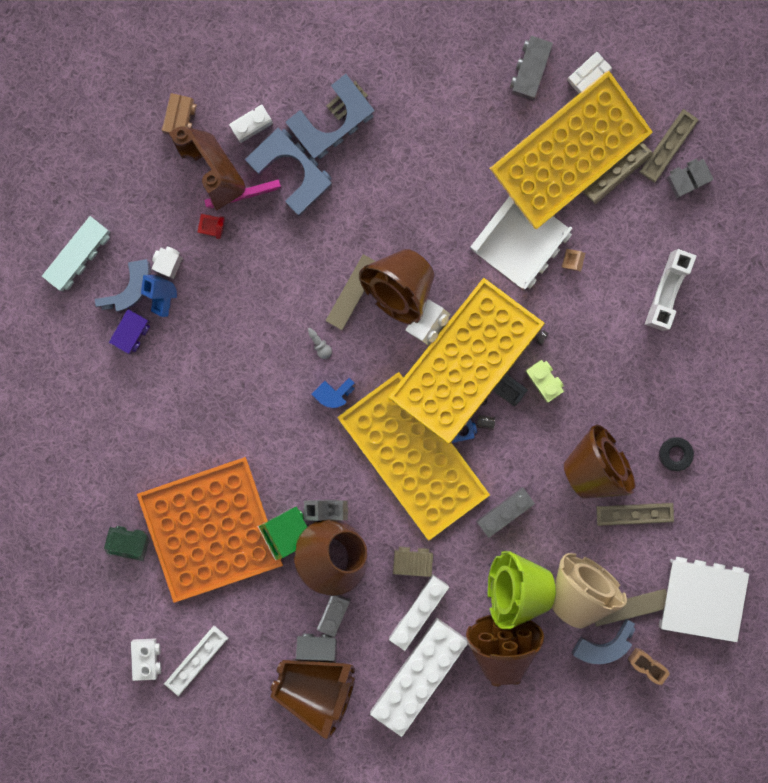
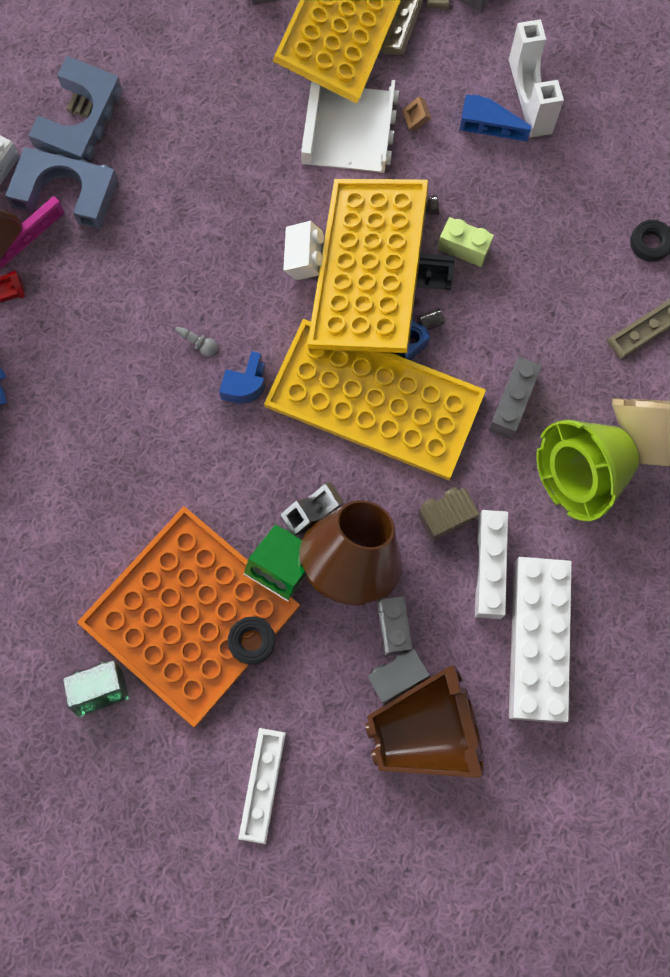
camera: 30 degrees left, 15 degrees down
(144, 659) = (197, 821): white brick -> none
(227, 569) = (239, 629): none -> black tyre
(349, 296) = (203, 270): dark tan tile -> none
(399, 284) = (246, 226): reddish brown cone -> none
(504, 652) = (620, 545): reddish brown cone -> none
(598, 468) = (584, 287): reddish brown cone -> none
(622, 293) = (489, 118): none -> blue slope

